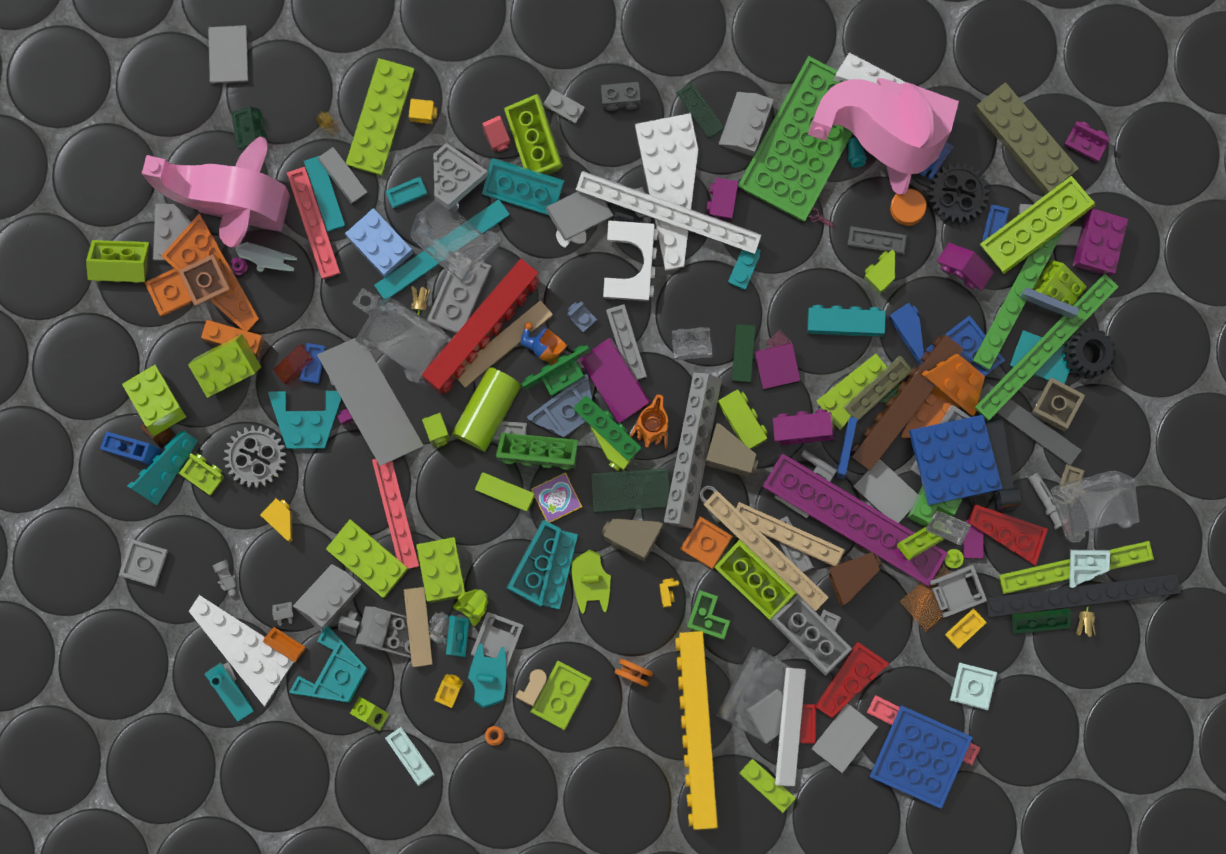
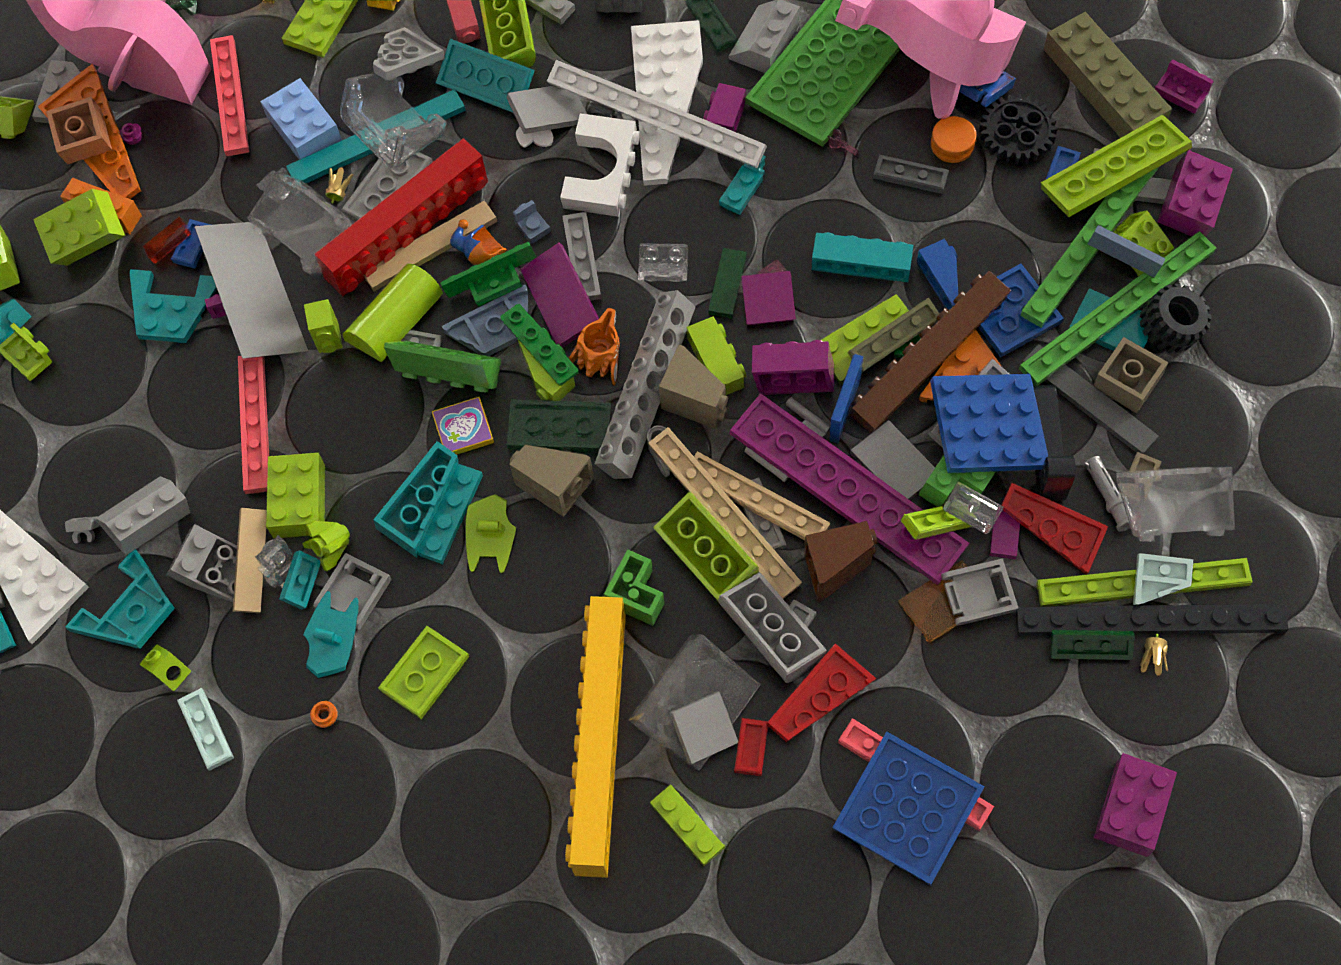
camera: 10 degrees right, 15 degrees down
(168, 292) = (39, 155): orange tile -> none
(227, 581) = (22, 482): light grey piece -> none
(247, 472) = (107, 323): light grey gear -> none
(264, 257) = (160, 123): light aqua shield -> none
(279, 518) = (107, 413): yellow slope -> none
(284, 644) = (74, 566): orange tile -> none
(324, 195) = (250, 67): teal tile -> none
(342, 175) = (274, 49): light grey tile -> none
(349, 624) = (162, 549): light grey tile -> none
(367, 558) = (205, 472): lime plate -> none
(406, 193) = (336, 76): teal tile -> none
(449, 690) = (274, 647): yellow bracket -> none
(505, 492) = (397, 411): lime tile -> none
(534, 688) = (386, 657): tan leg -> none
(633, 672) = (524, 648): orange head -> none
(666, 595) = (585, 554): yellow bracket -> none
(706, 542) = (647, 499): orange tile -> none
(790, 727) = (728, 746): white tile -> none
(844, 738) = (803, 772): light grey tile -> none
(856, 154) = (895, 80): teal cone -> none
(883, 273) = (912, 208): lime slope -> none
(954, 559) = (976, 553): lime tile -> none
(958, 381) = (999, 330): orange wing -> none
(965, 265) = (1023, 203): magenta brick -> none
(965, 628) = (985, 644): yellow plate -> none
(973, 686) = (990, 723): light aqua tile -> none
(1077, 736) = (1135, 805): none -> magenta brick

